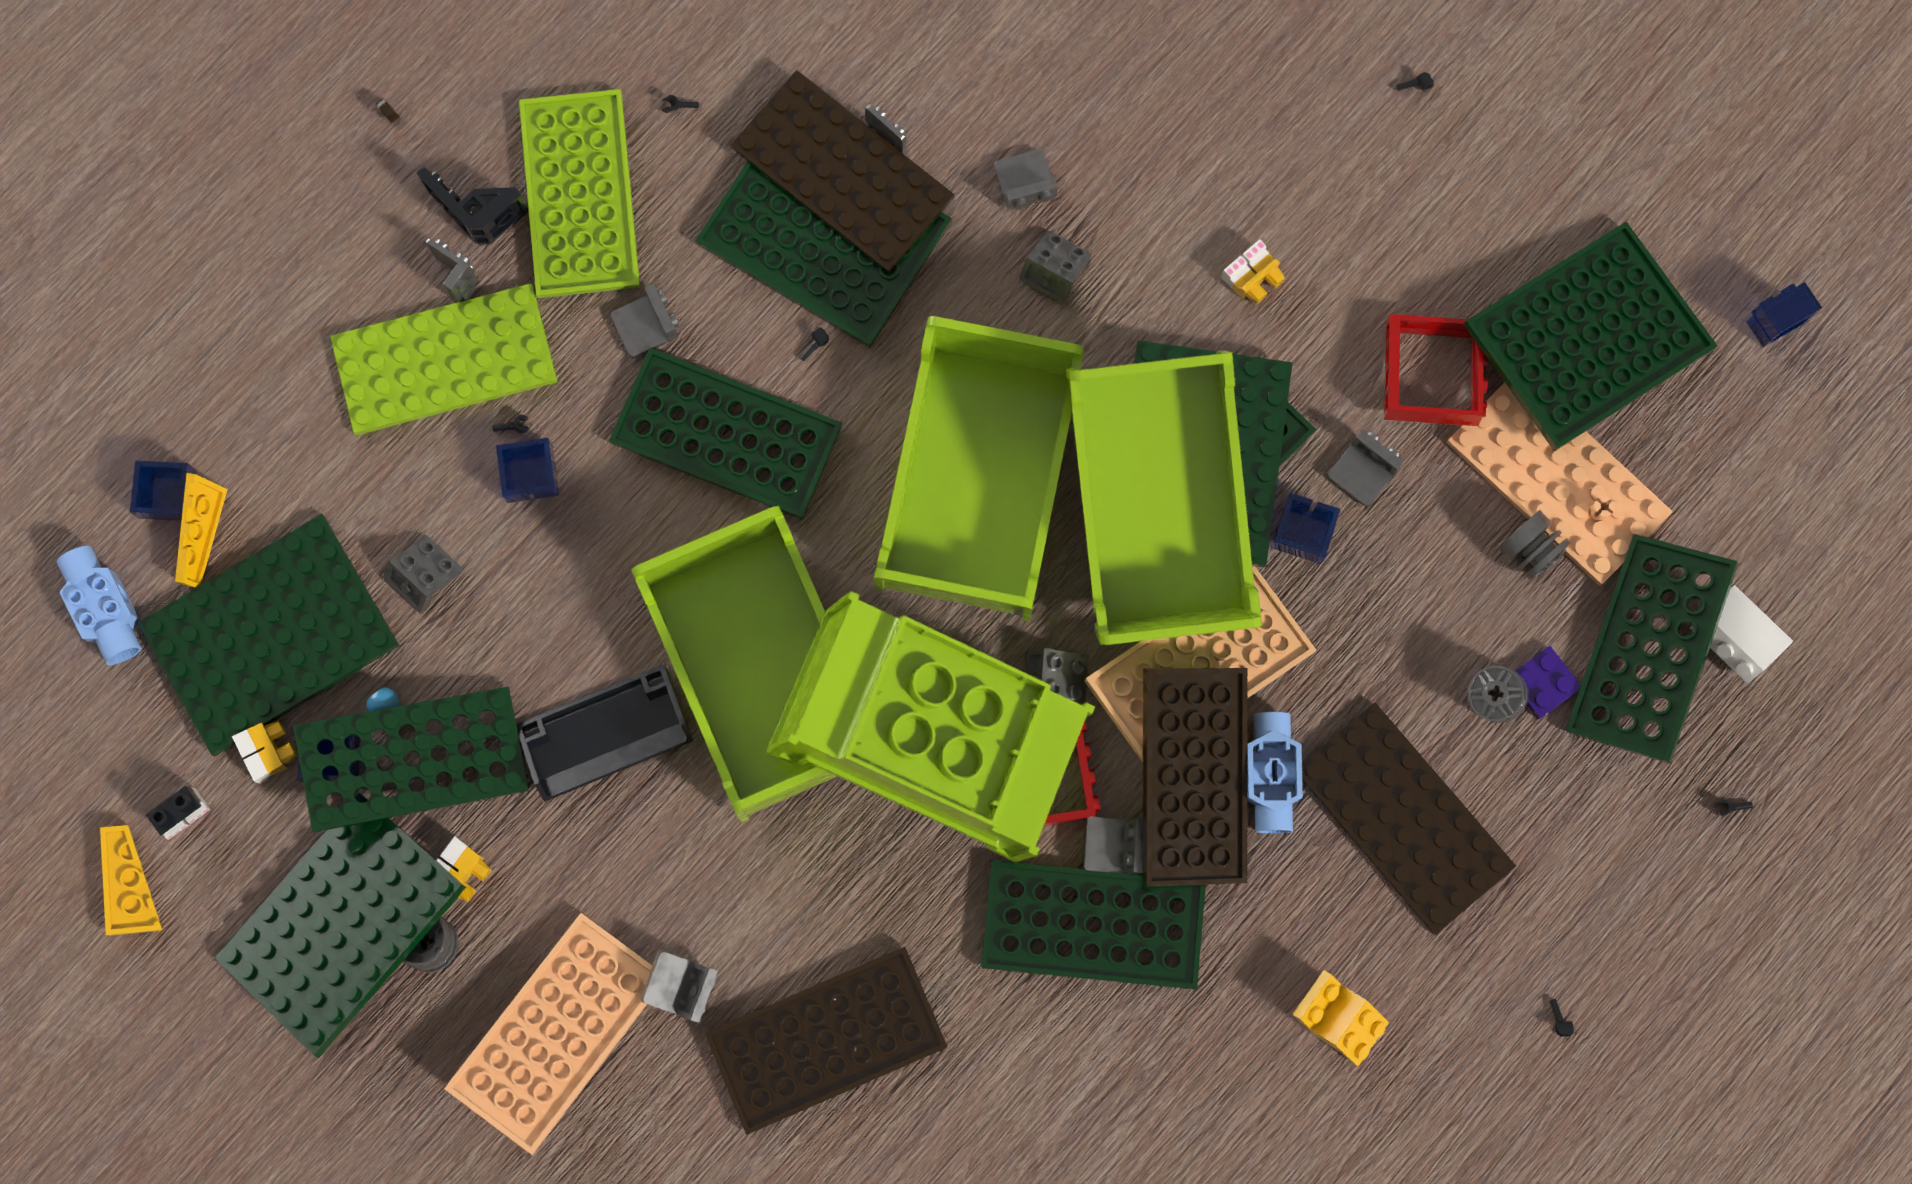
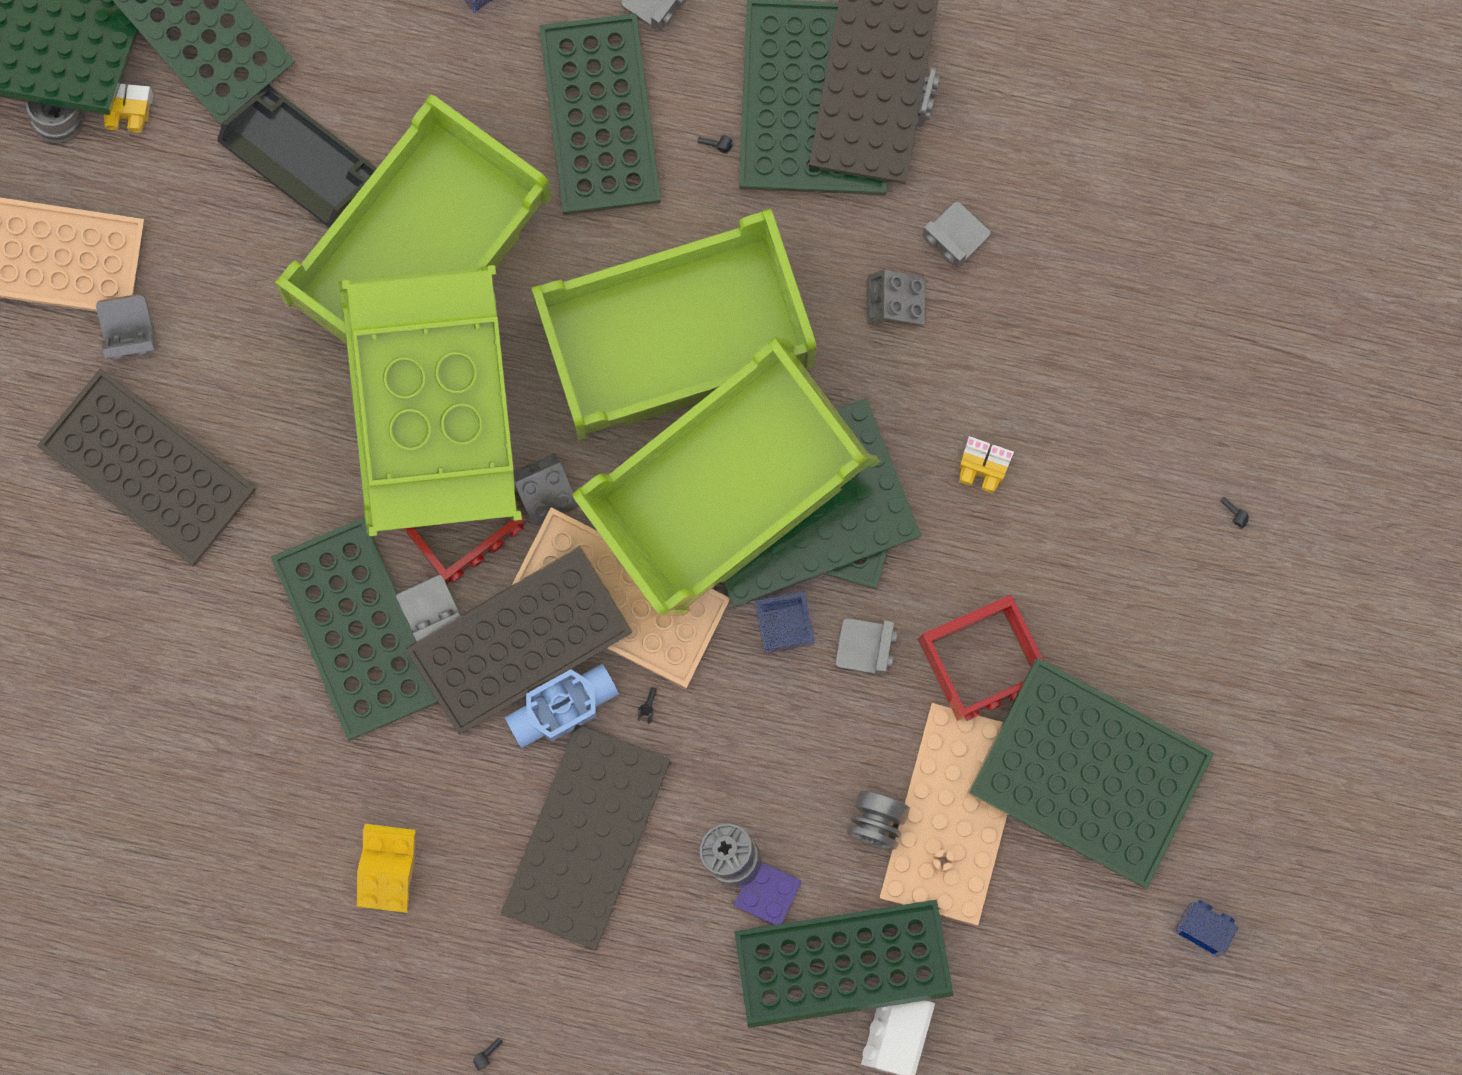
camera: 60 degrees right, 0 degrees up
(1315, 696) = (647, 709): none -> black hand

